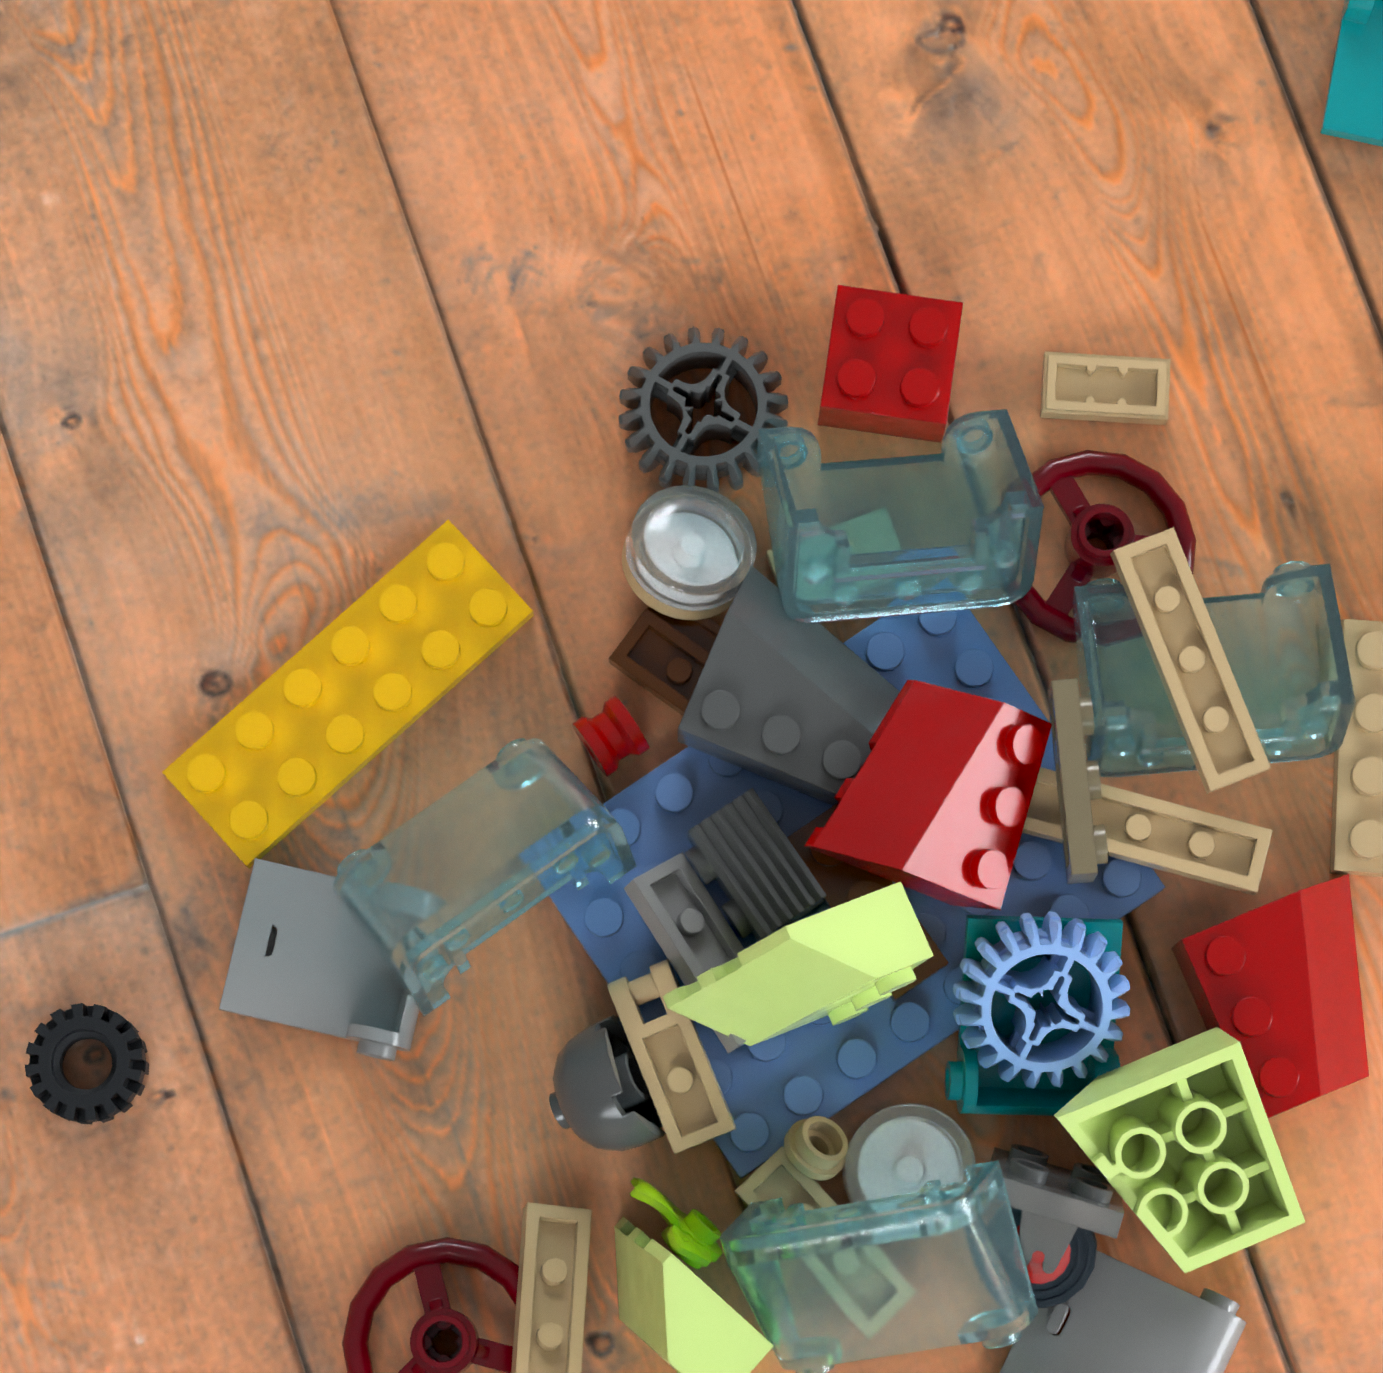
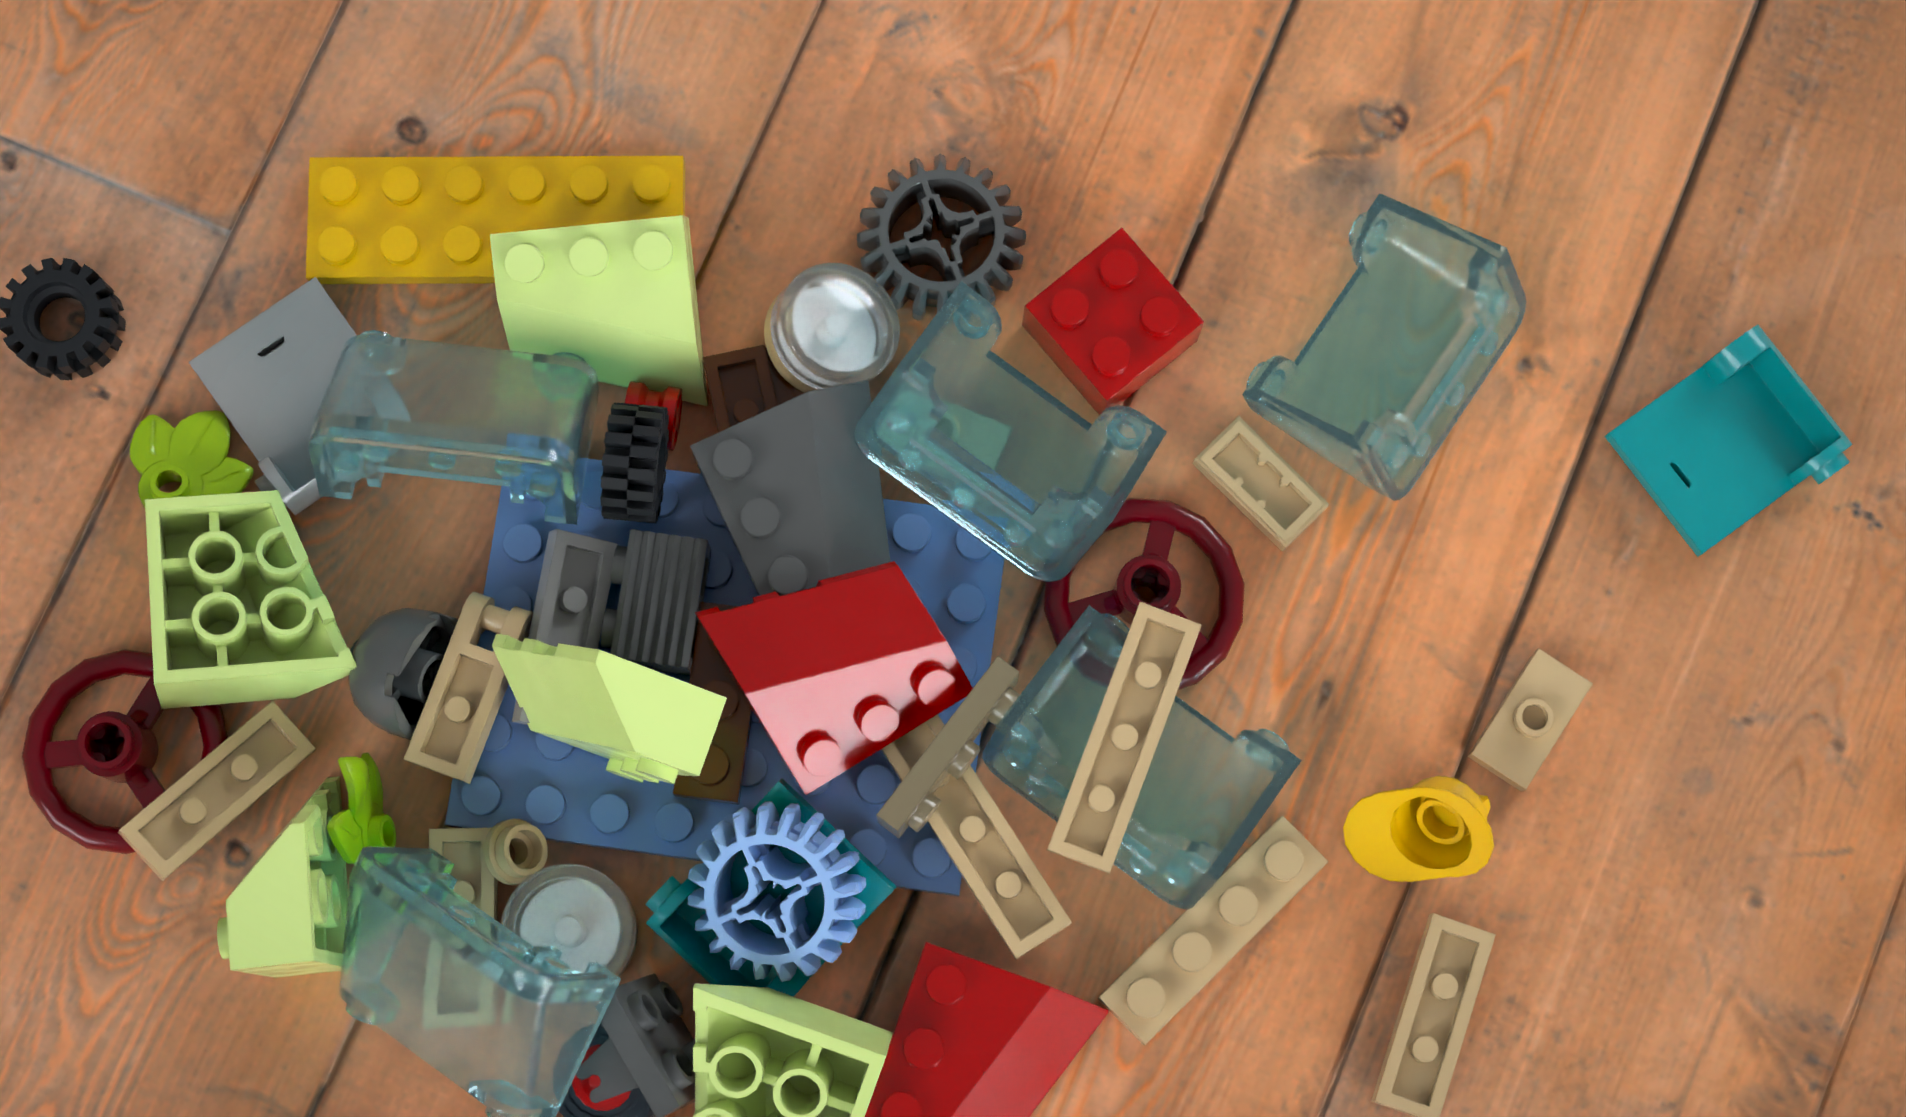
camera: 40 degrees right, 0 degrees up
(284, 1078) = (187, 454): none -> lime plate
(436, 1152) = (236, 603): none -> yellowish green wedge
(501, 673) = (607, 294): none -> yellowish green wedge
(645, 778) = (634, 462): none -> black tyre
(1111, 200) = (1395, 348): none -> clear light blue windscreen

